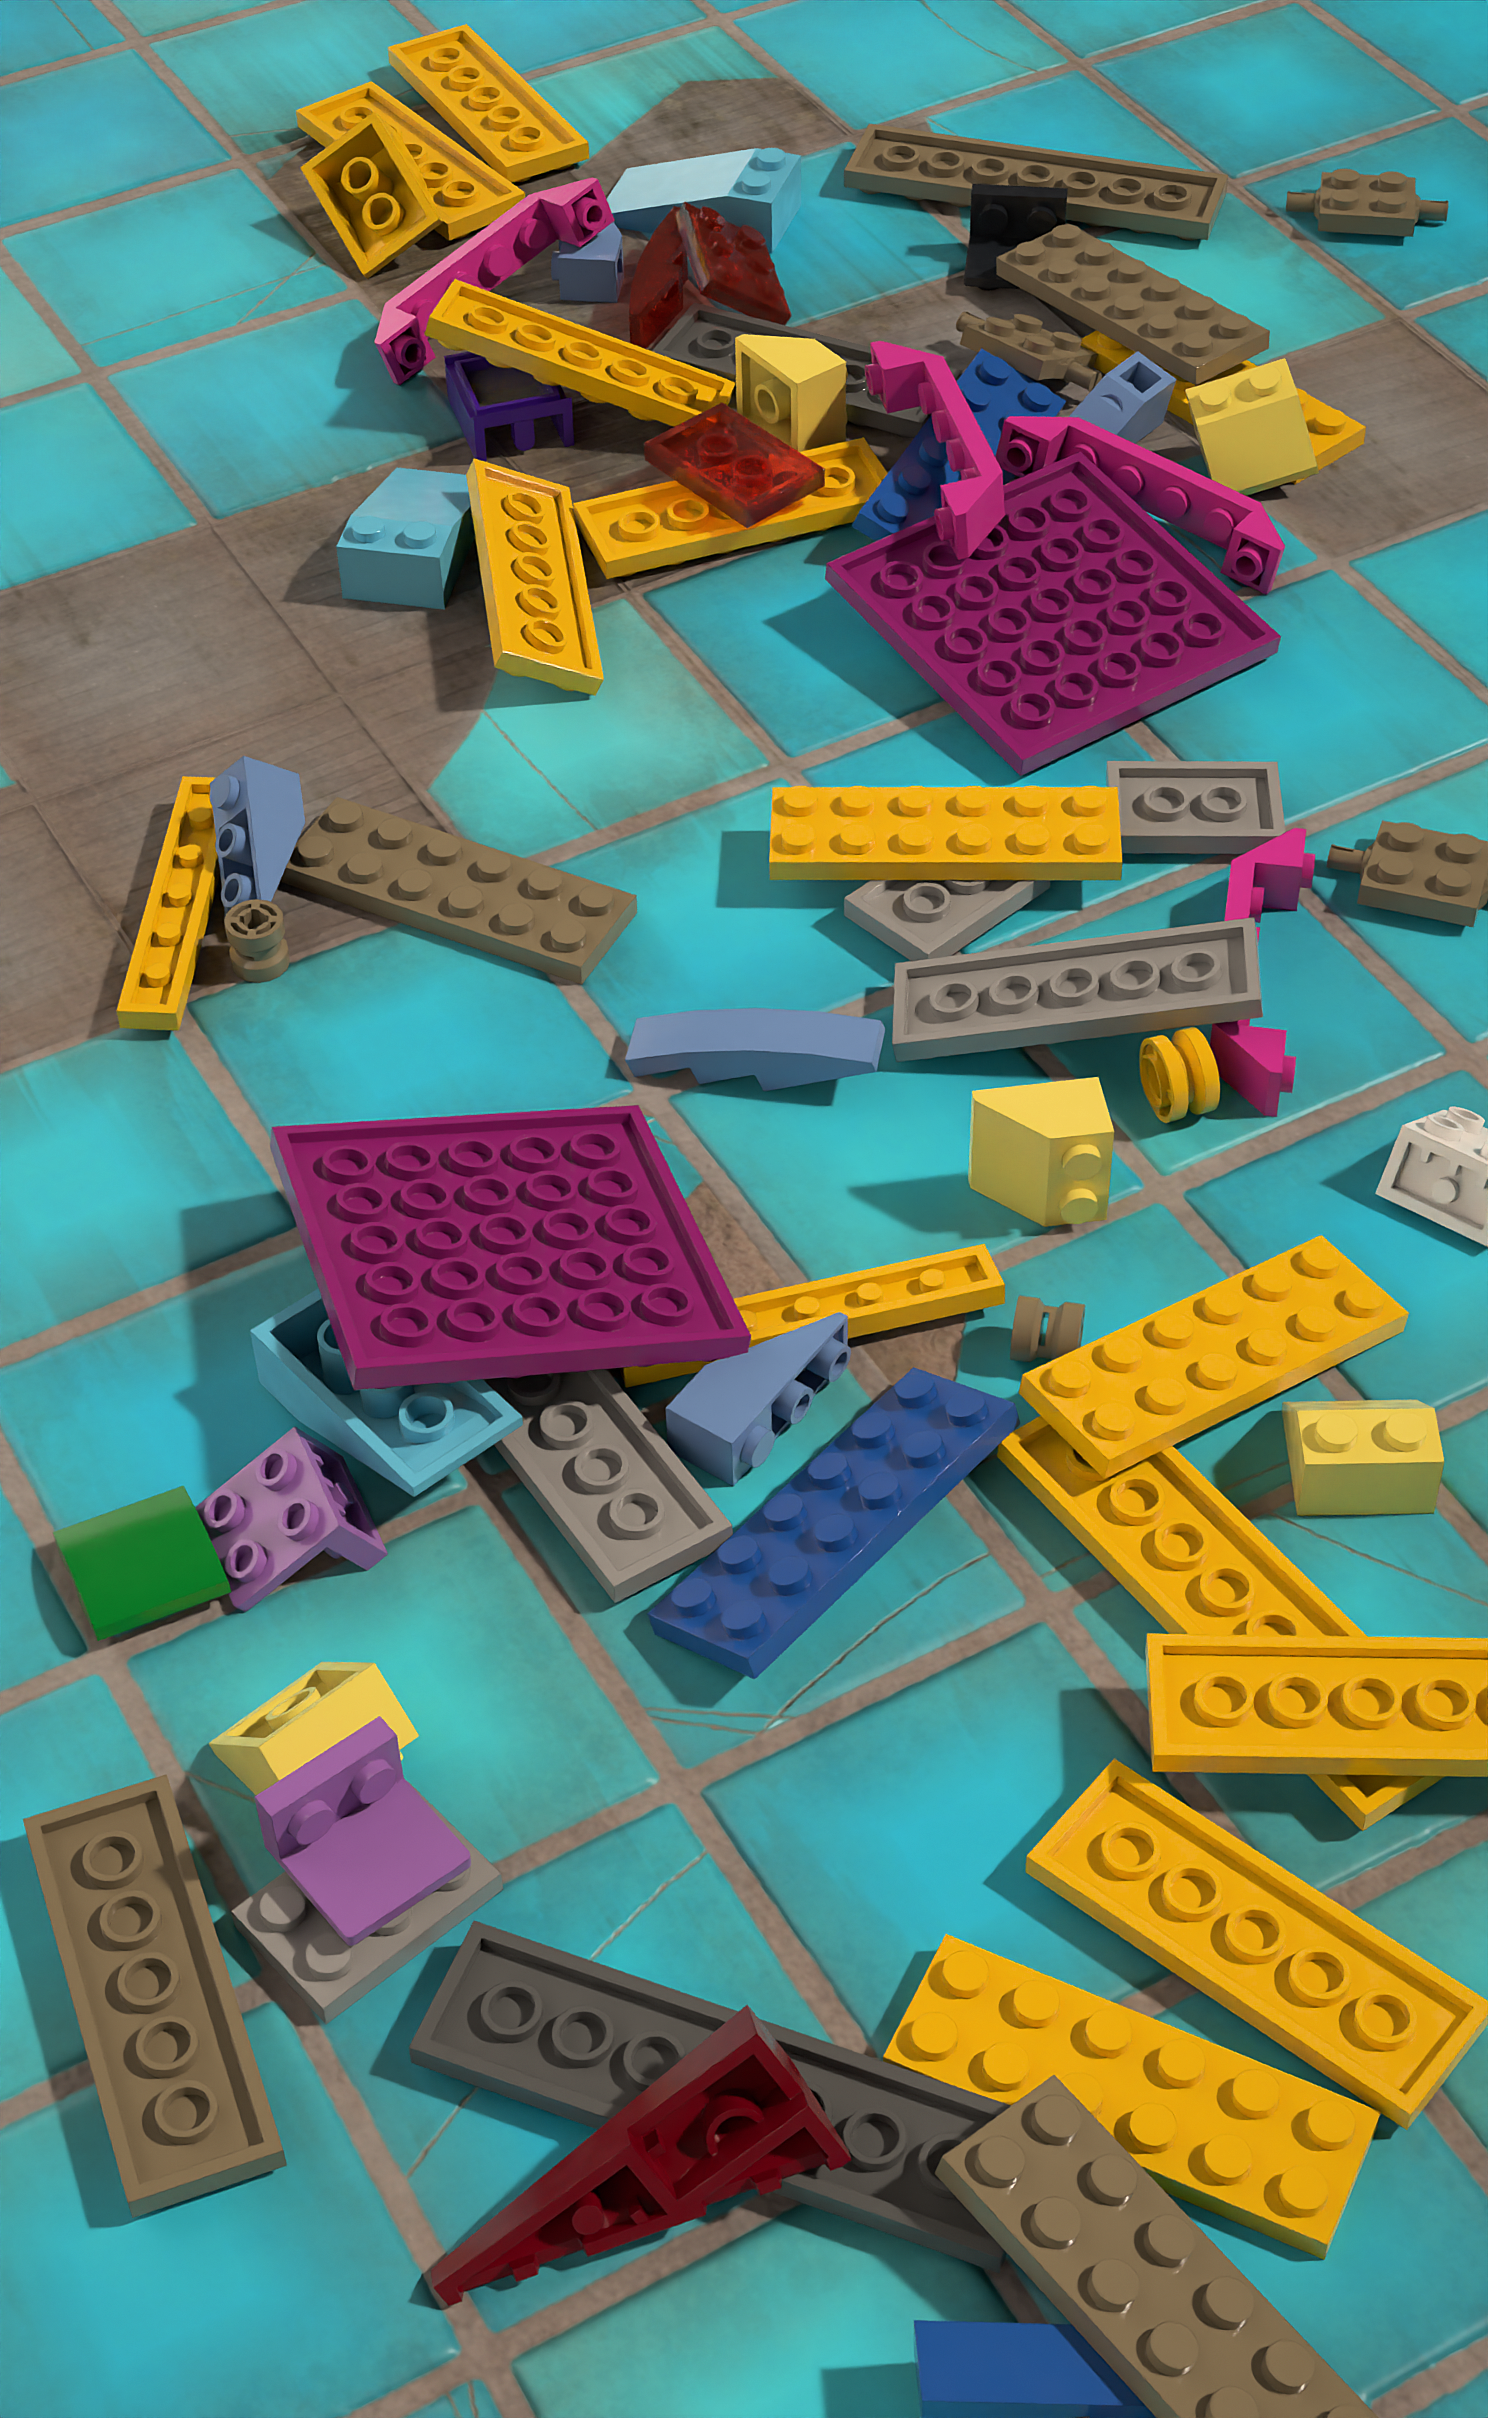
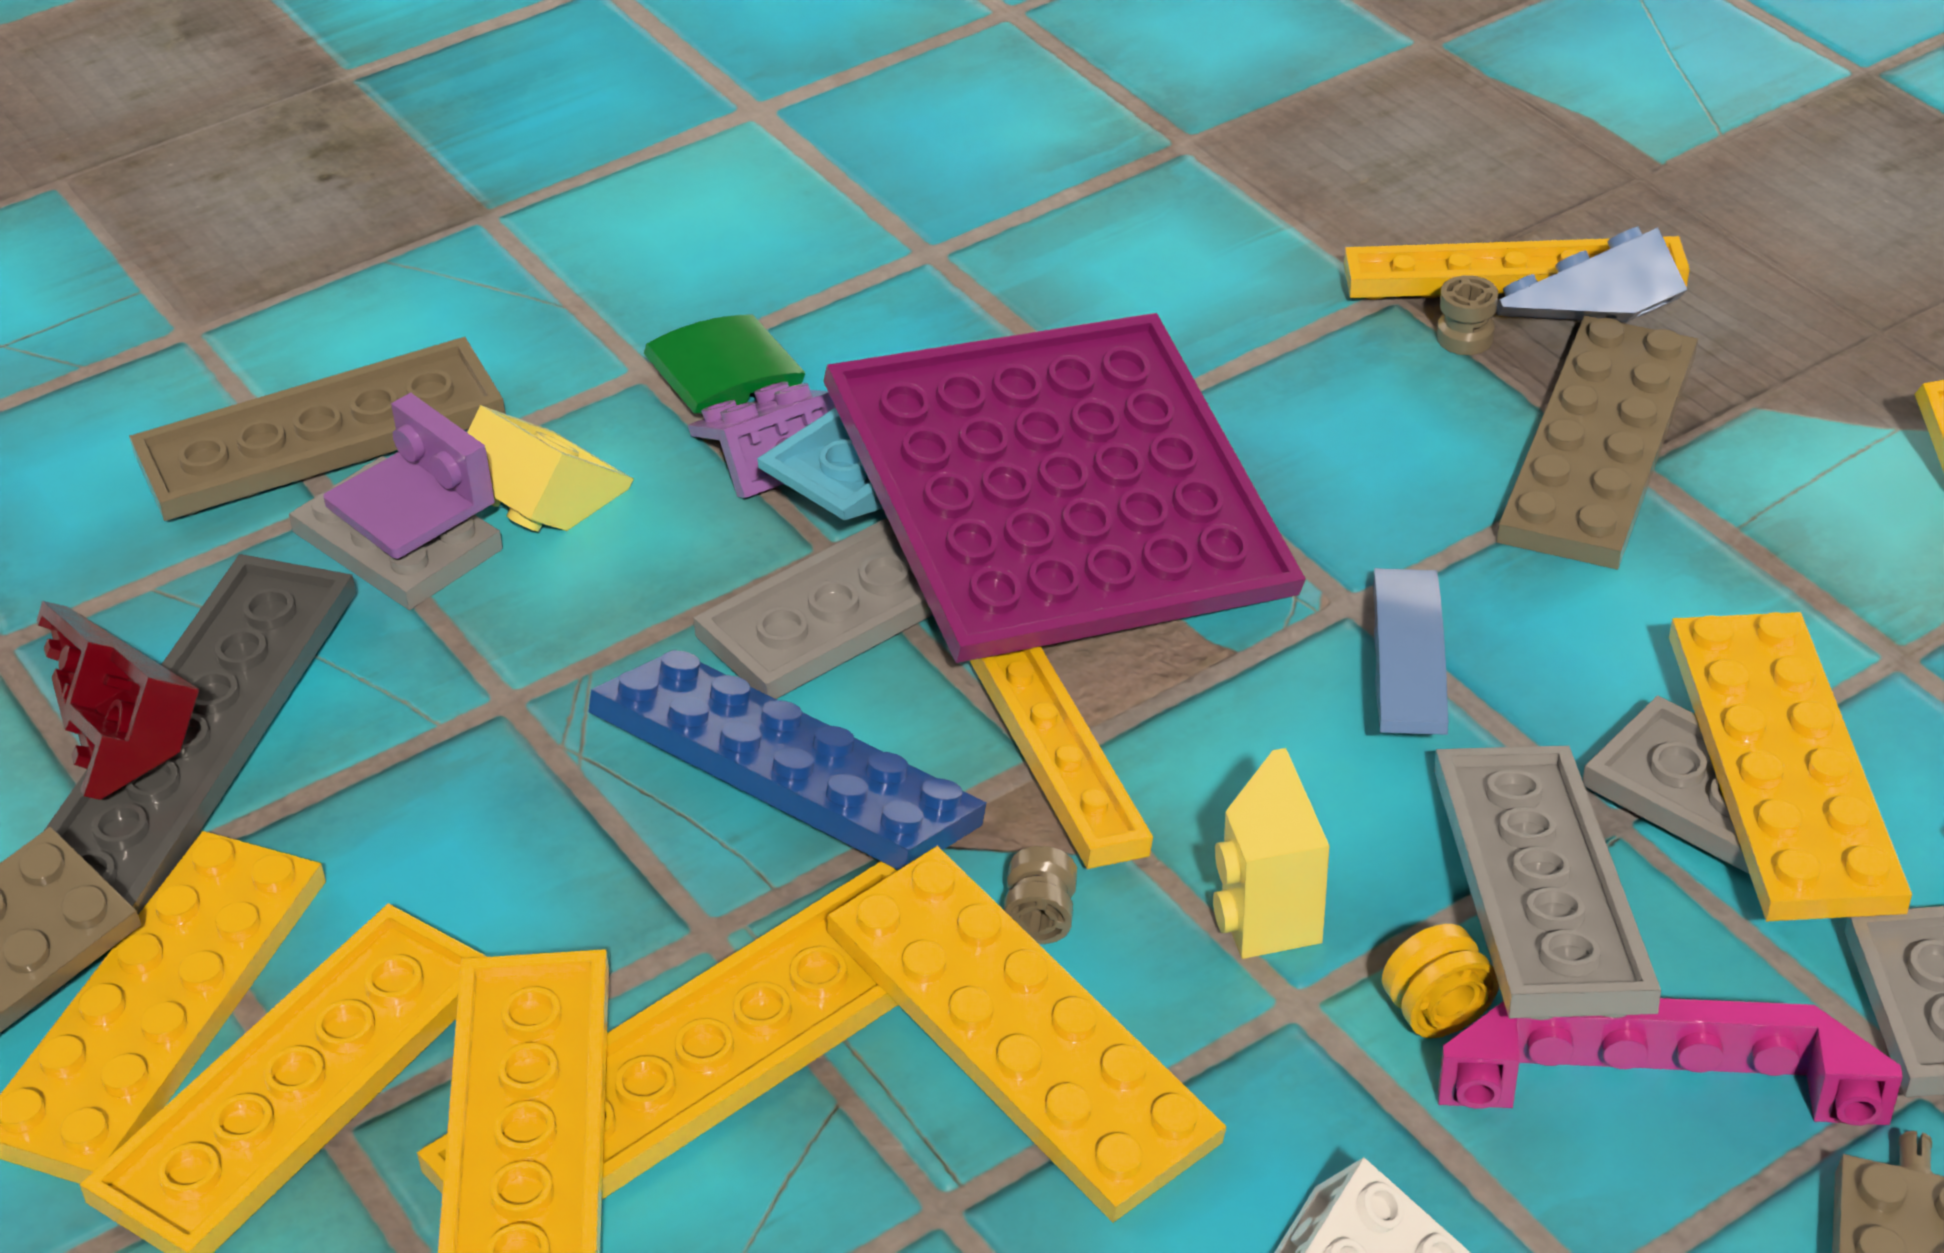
camera: 85 degrees right, 5 degrees down
(745, 1401) = (920, 686): medium blue slope -> none
(1363, 1456) = (909, 1157): light yellow slope -> none

